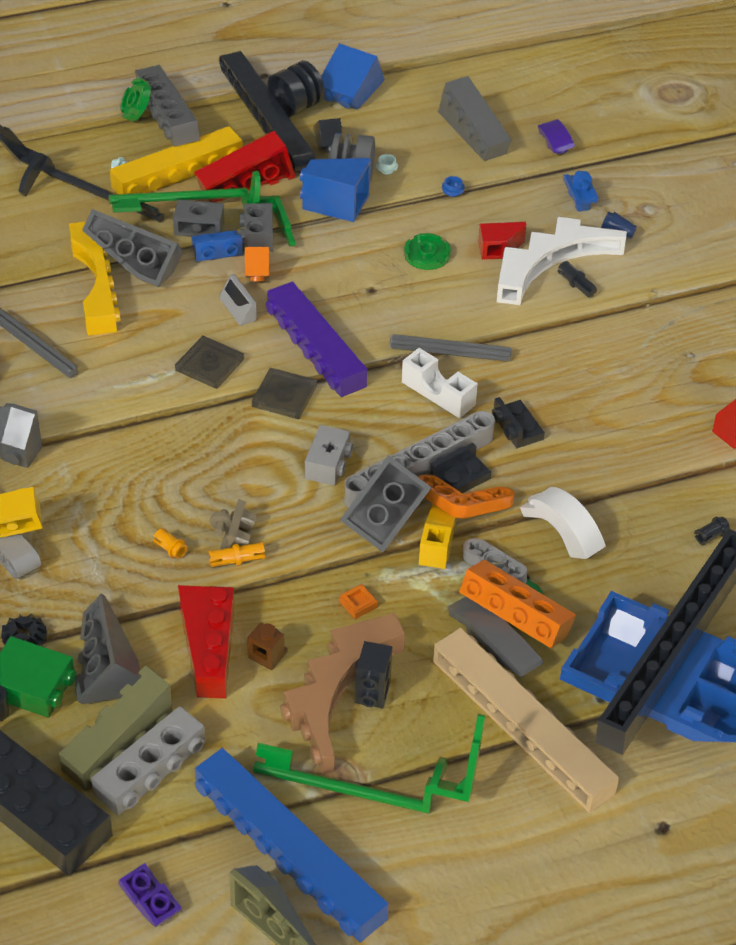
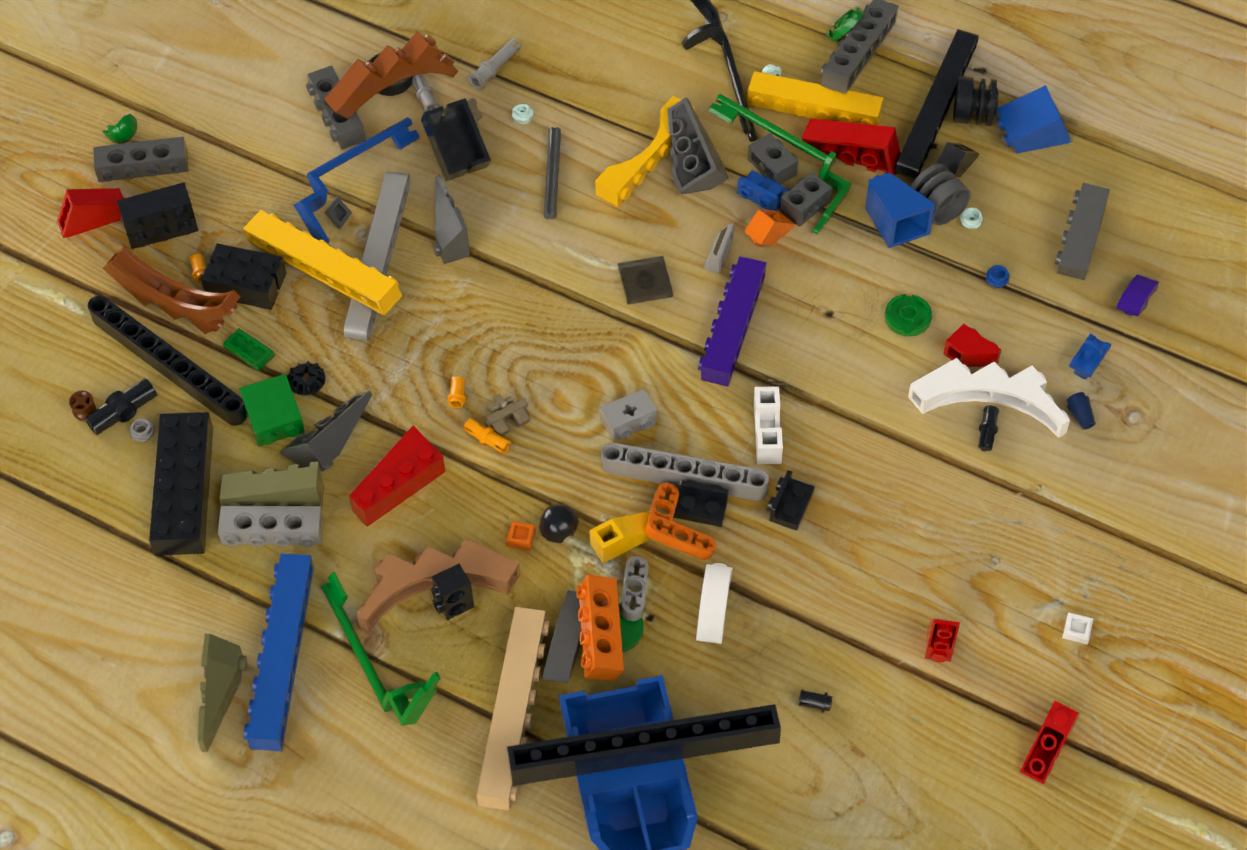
camera: 50 degrees right, 10 degrees up
(149, 896) = (176, 609): dark purple slope -> none
(268, 638) = (424, 514): reddish brown brick -> none
(284, 393) = (664, 345): clear smoke plate -> none
(375, 568) = (558, 523): none -> black hair
(385, 503) = (613, 481): dark grey slope -> none
(450, 347) = (821, 405): dark grey axle -> none

